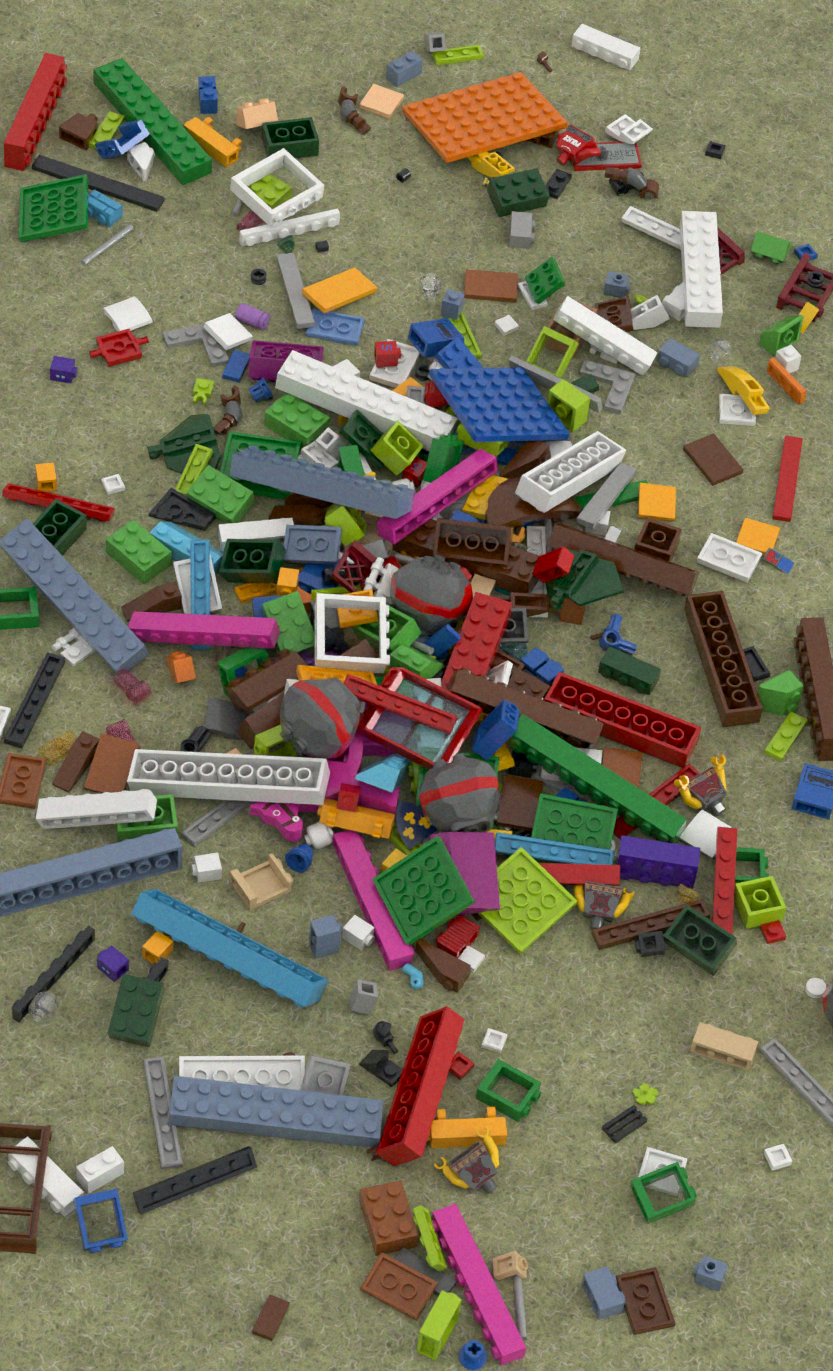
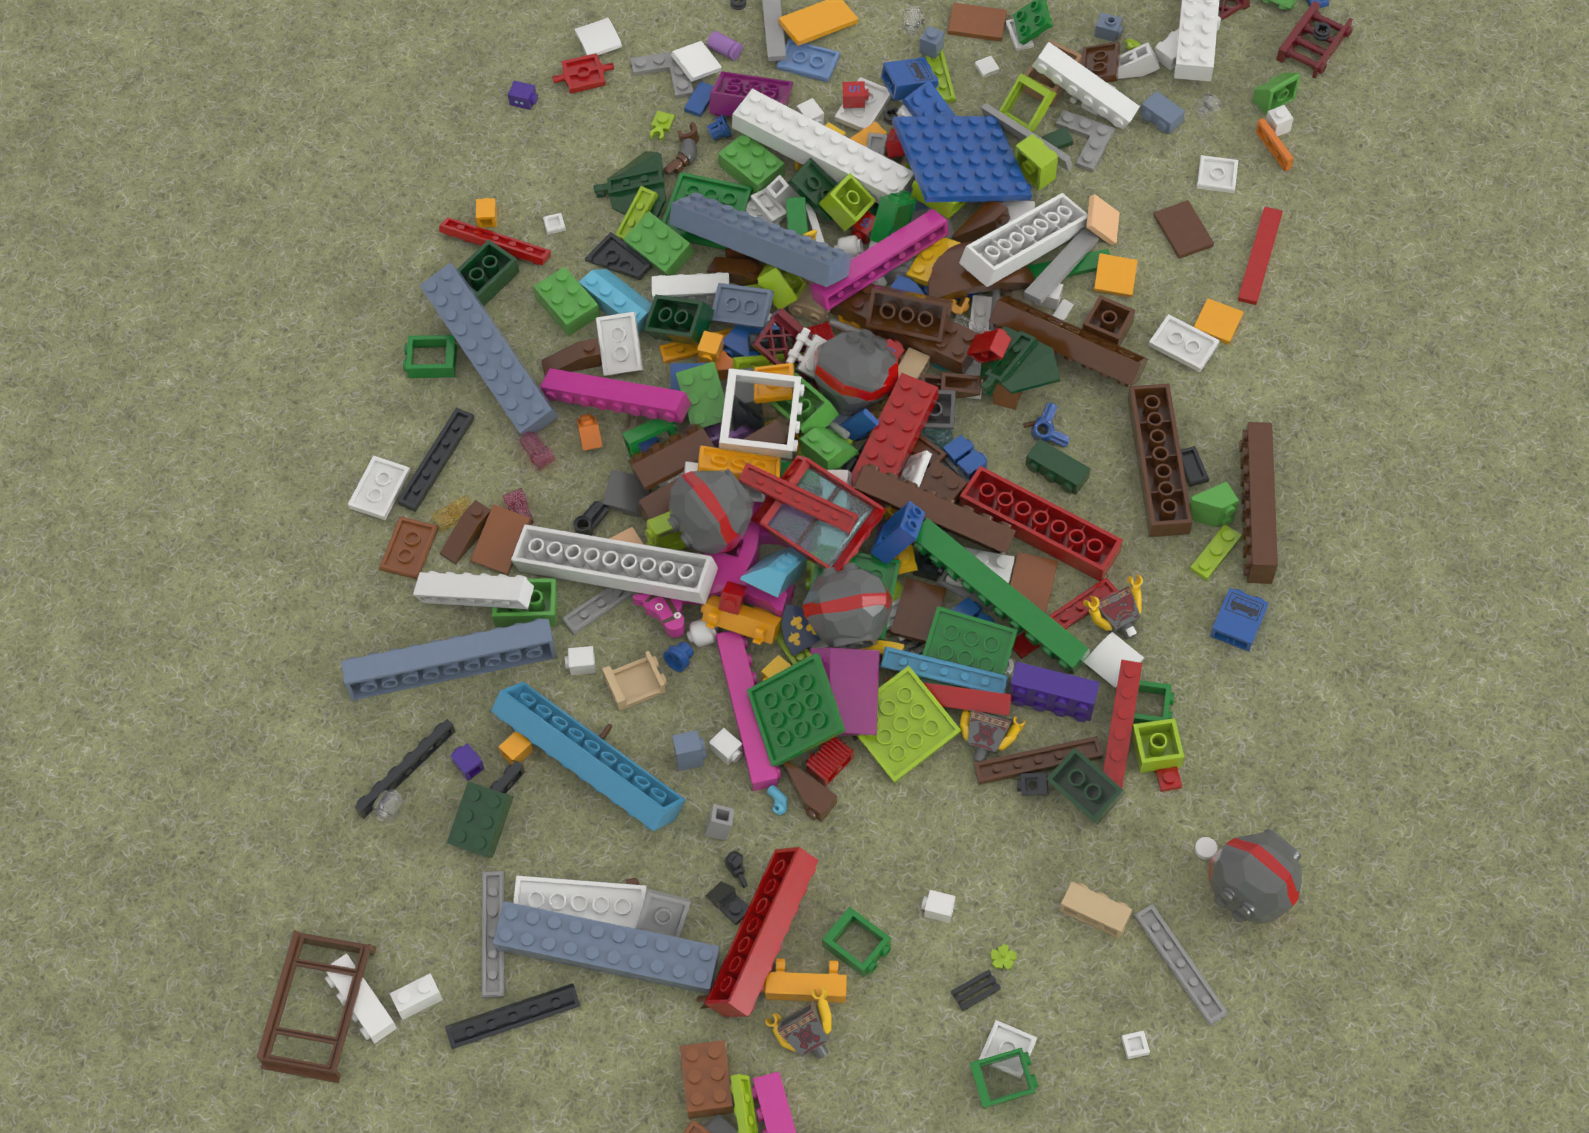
camera: 15 degrees right, 10 degrees up
(76, 652) = (483, 409): white plate -> none
(94, 1199) = (400, 1033): blue window -> none
(200, 581) = (620, 340): dark azure tile -> none
(378, 549) = (809, 315): light grey brick -> none
(461, 1065) = (810, 908): red plate -> none
(472, 957) = (841, 785): white tile -> none
(494, 1040) = (851, 881): white tile -> none
(506, 456) = (964, 214): blue tile -> none
(579, 1054) = (938, 906): none -> white brick
(638, 453) = (1102, 219): none -> light nougat tile
(686, 894) = (1081, 730): clear yellow plate -> none
(746, 386) = (1230, 150): yellow slope -> none
(778, 560) = (1237, 349): sticker -> none
(808, 312) = (1306, 71): yellow sticker -> none

